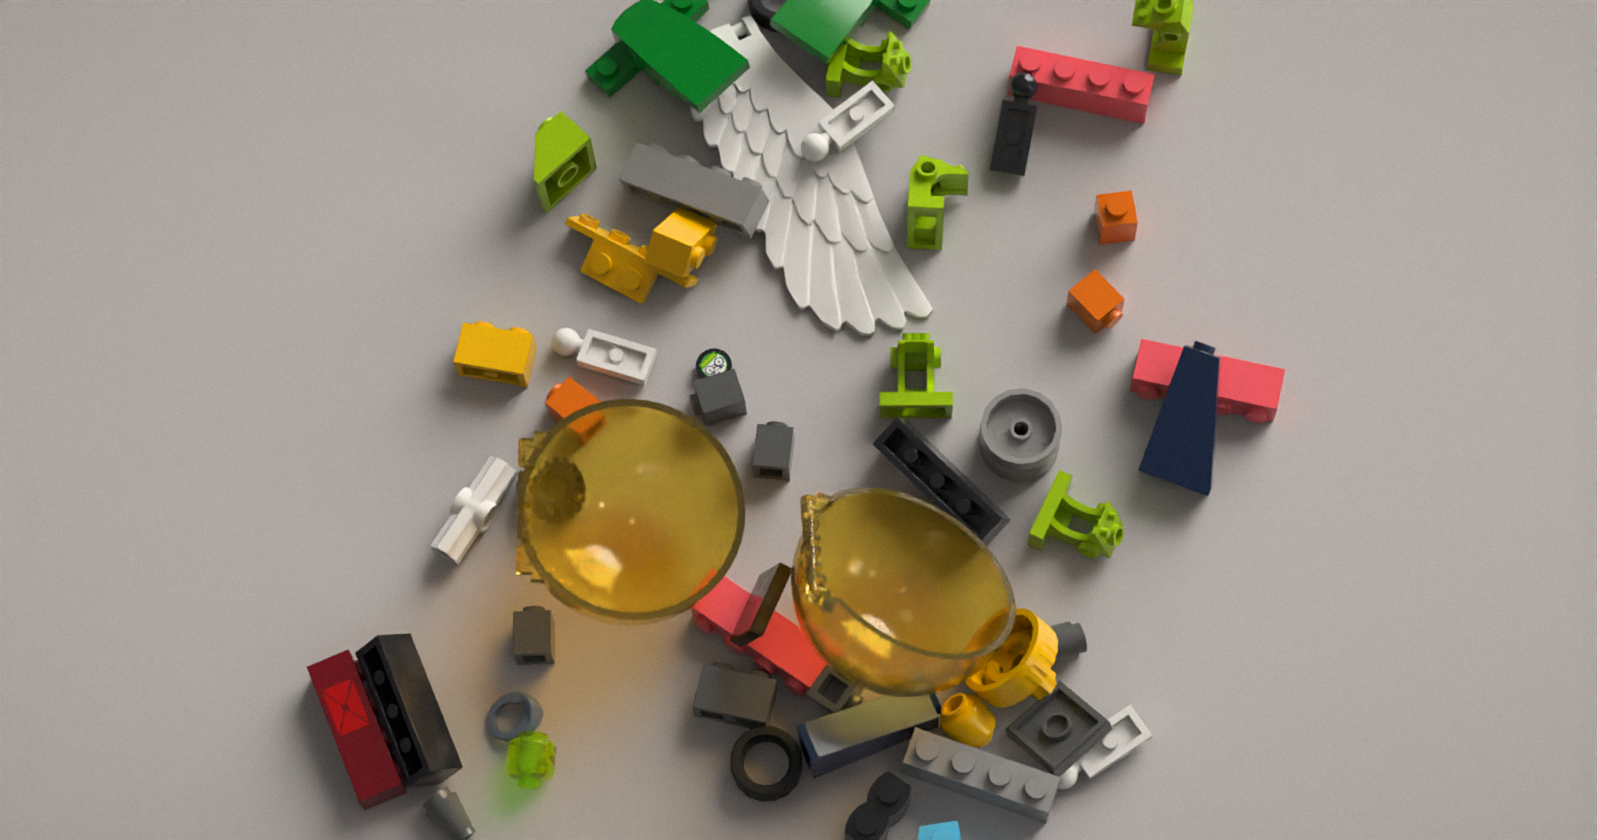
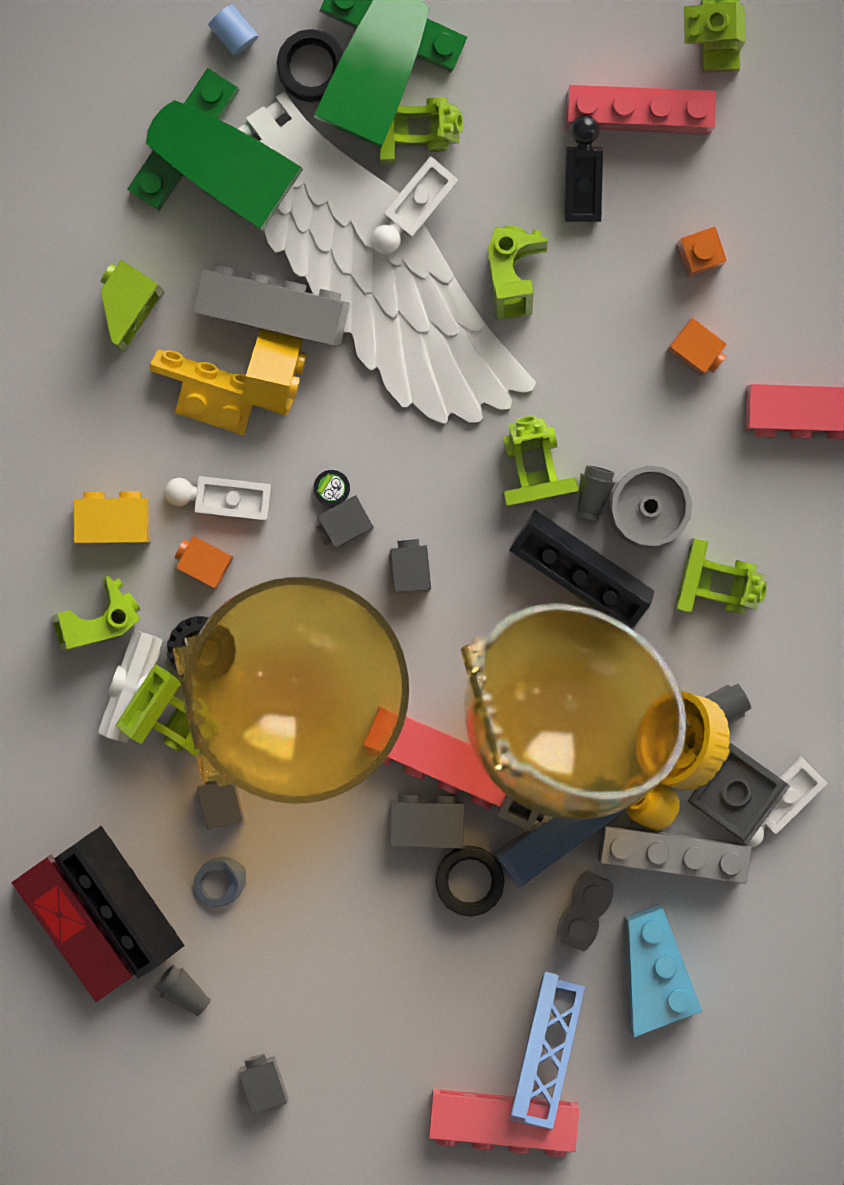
camera: 15 degrees left, 20 degrees up
(461, 446) = (78, 632): none -> lime tile
(484, 524) = (147, 706): none -> lime tile
(531, 759) = (246, 923): clear neon green head -> none
(761, 604) = (438, 746): dark brown tile -> none
(968, 415) = (594, 491): none -> dark grey cone
(1185, 429) = (810, 471): dark blue slope -> none

